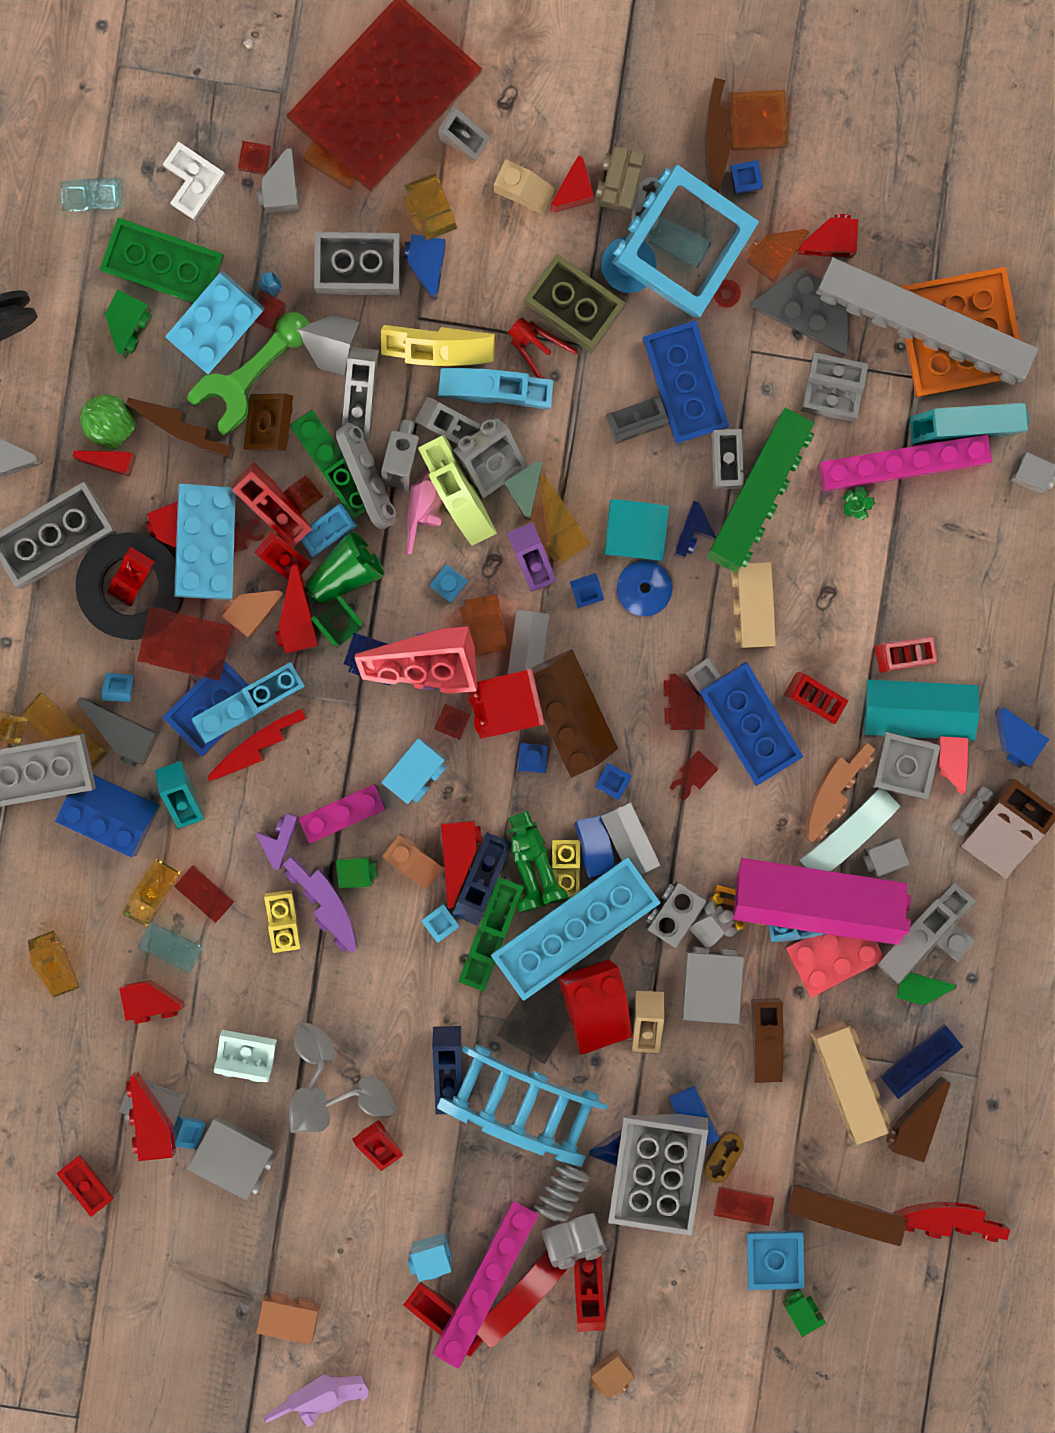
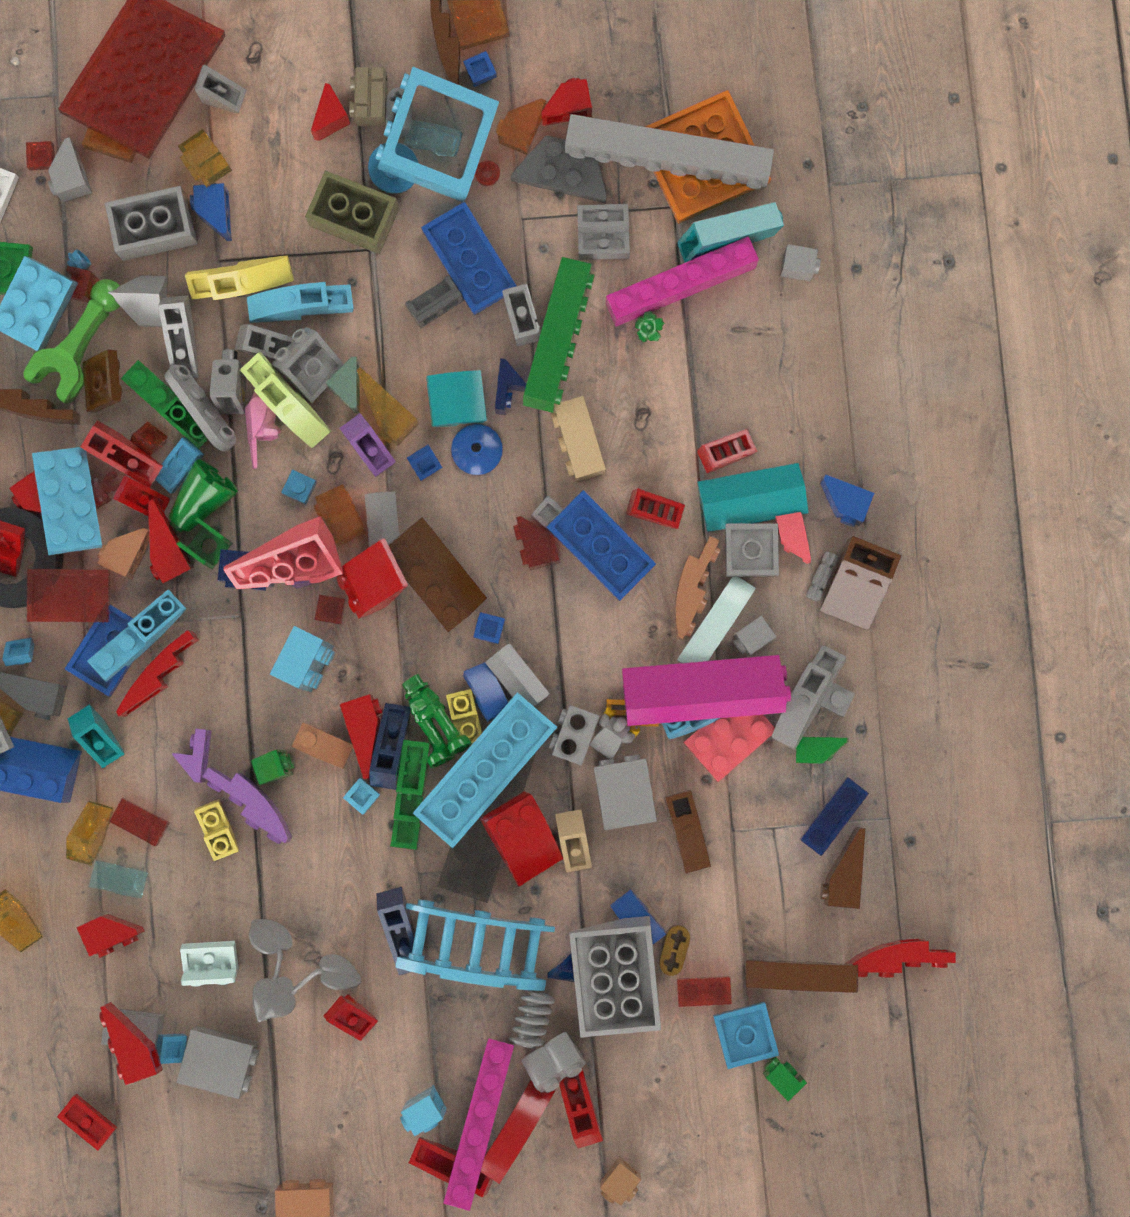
camera: 15 degrees left, 5 degrees down
(342, 813) = (249, 718): dark pink plate -> none
(523, 187) = (283, 123): tan slope -> none
(526, 333) = (316, 250): red plant -> none
(532, 757) = (411, 625): blue plate -> none
(695, 771) = (563, 602): clear red plate -> none
(849, 1082) = (772, 851): tan brick -> none

